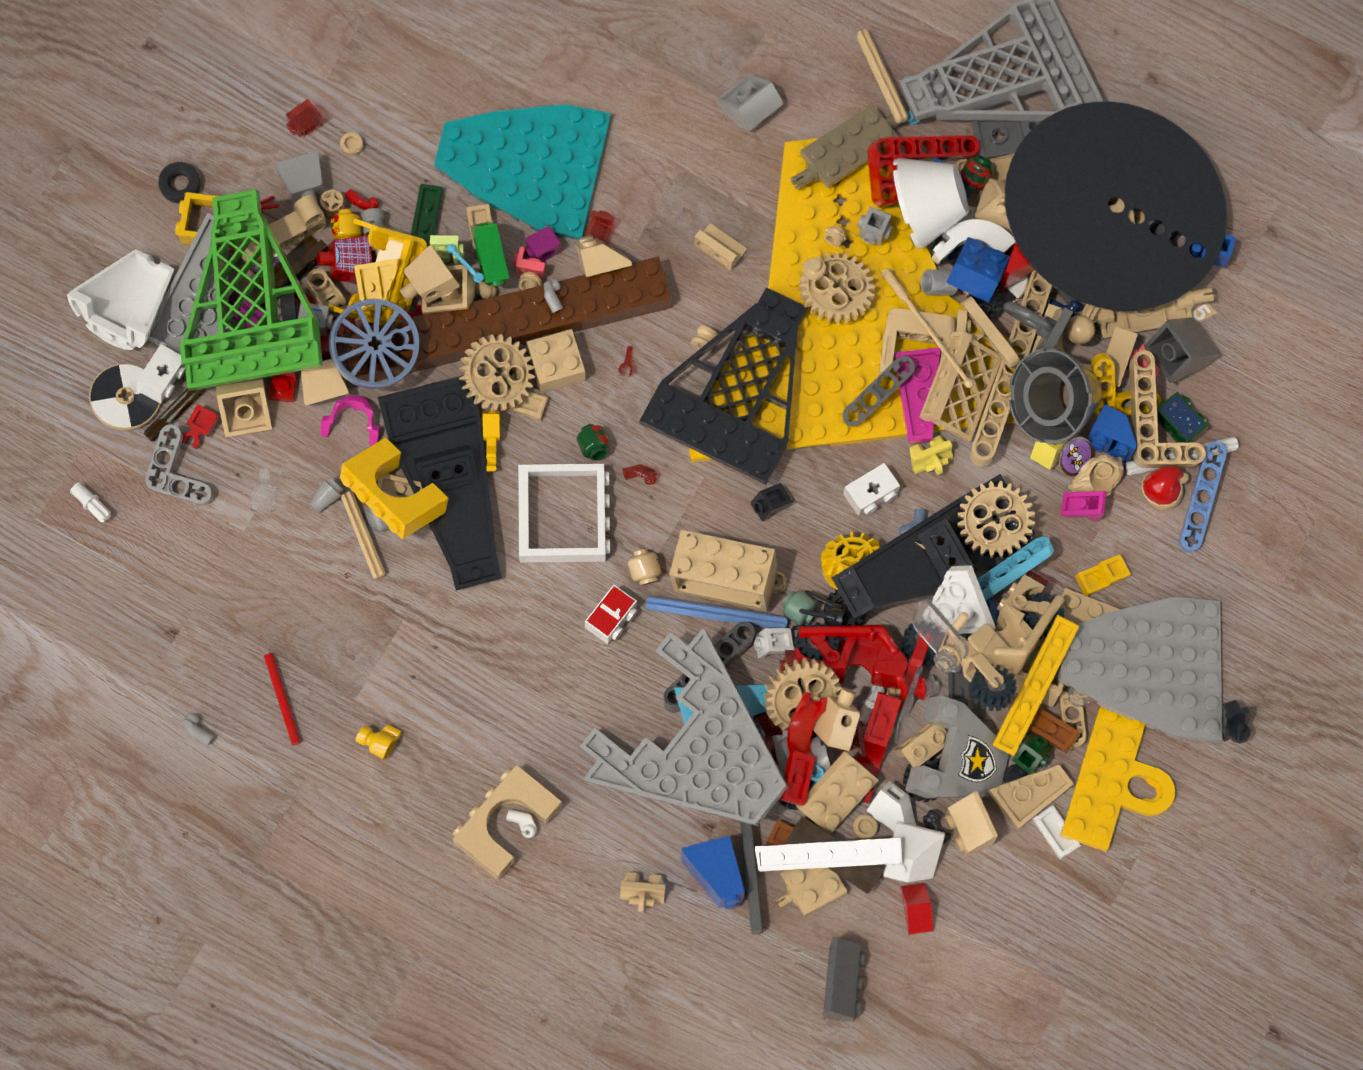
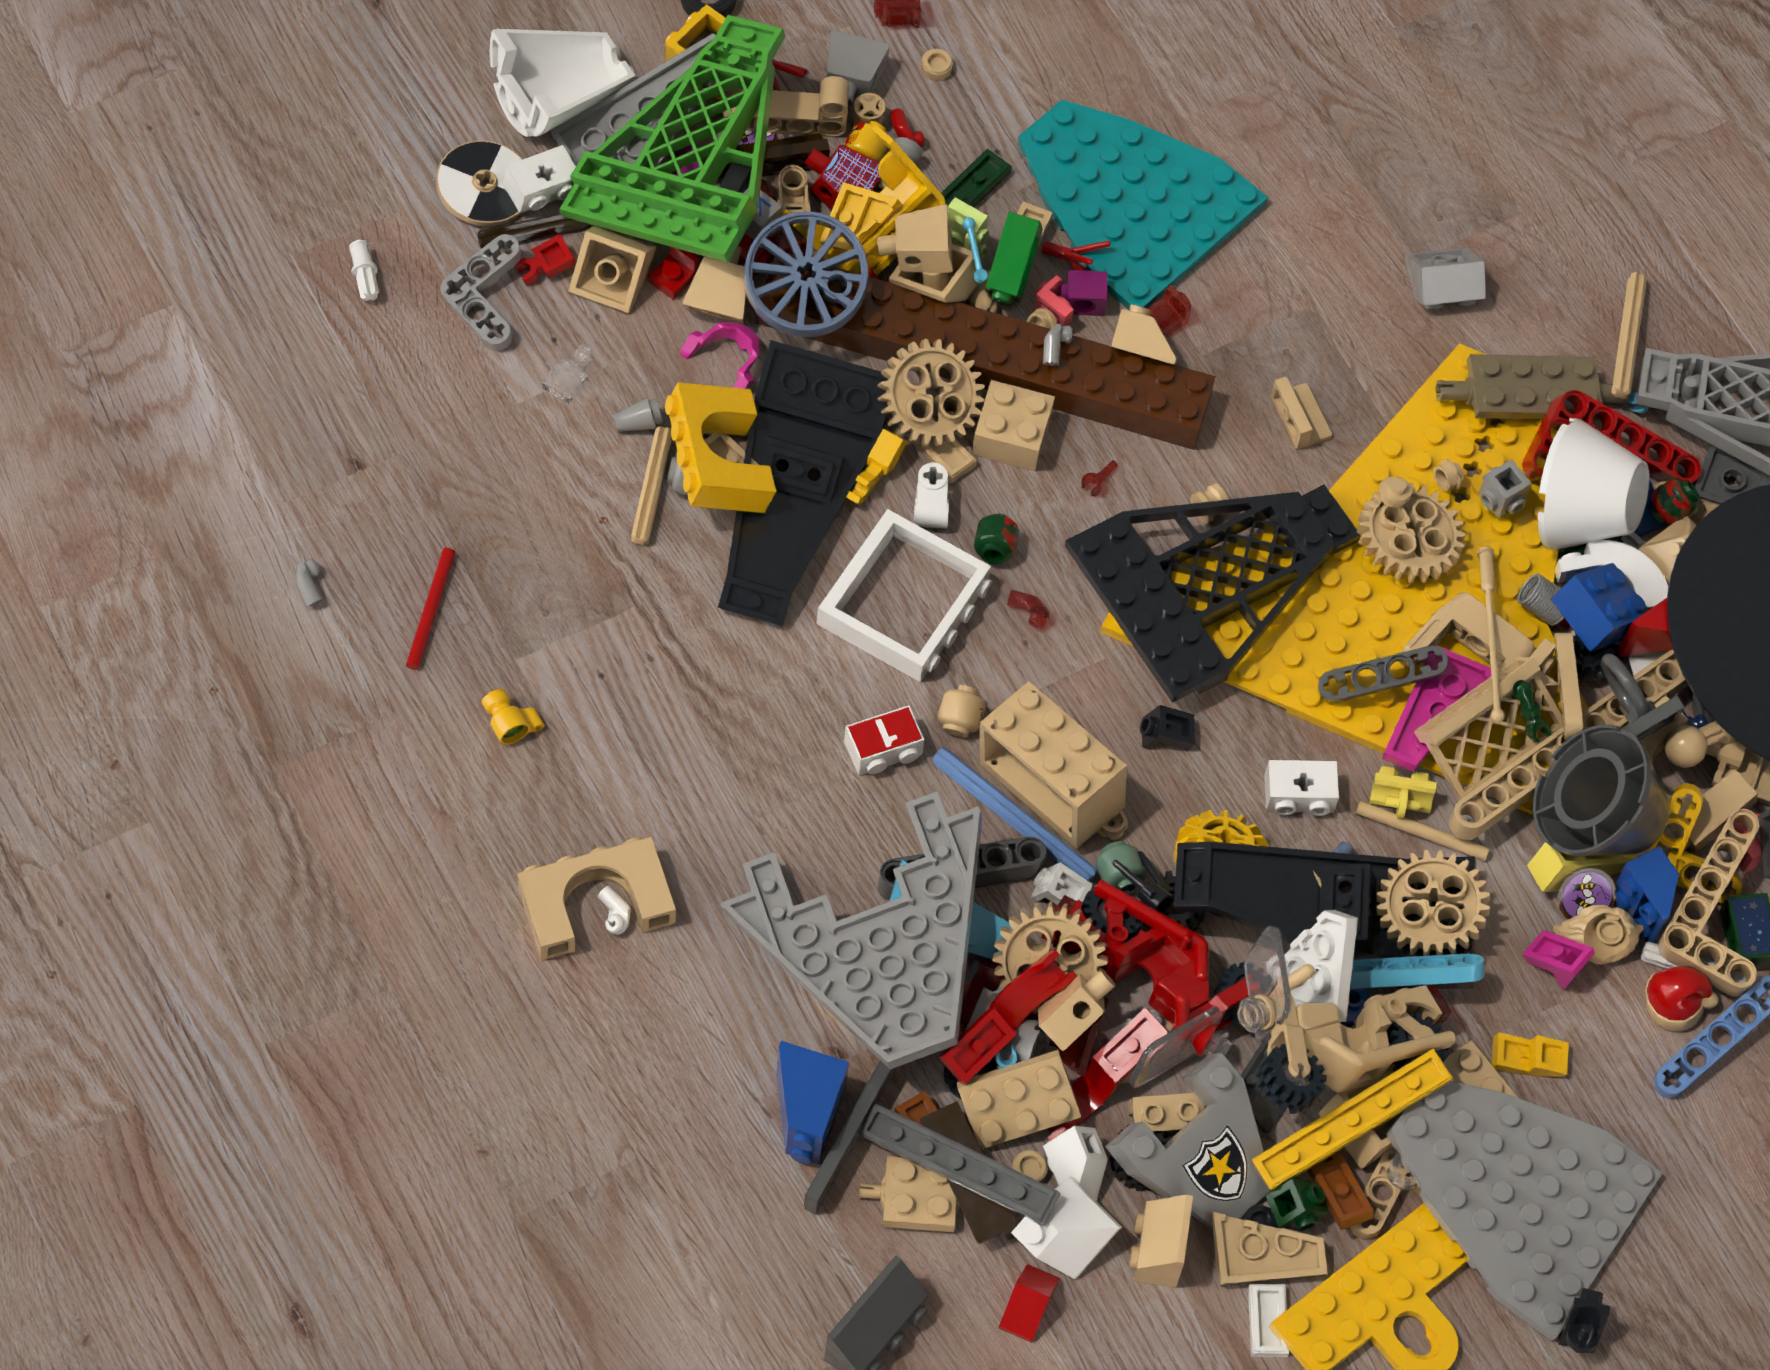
camera: 30 degrees right, 10 degrees down
(515, 225) = (1072, 254): none -> red plant
(539, 442) = (931, 500): none -> white piece
(642, 893) = (702, 1075): tan hips -> none
(930, 823) = (1115, 1207): black arm -> none
(955, 473) = (1422, 830): none -> tan bar
(979, 363) = (1530, 710): none -> dark green piece

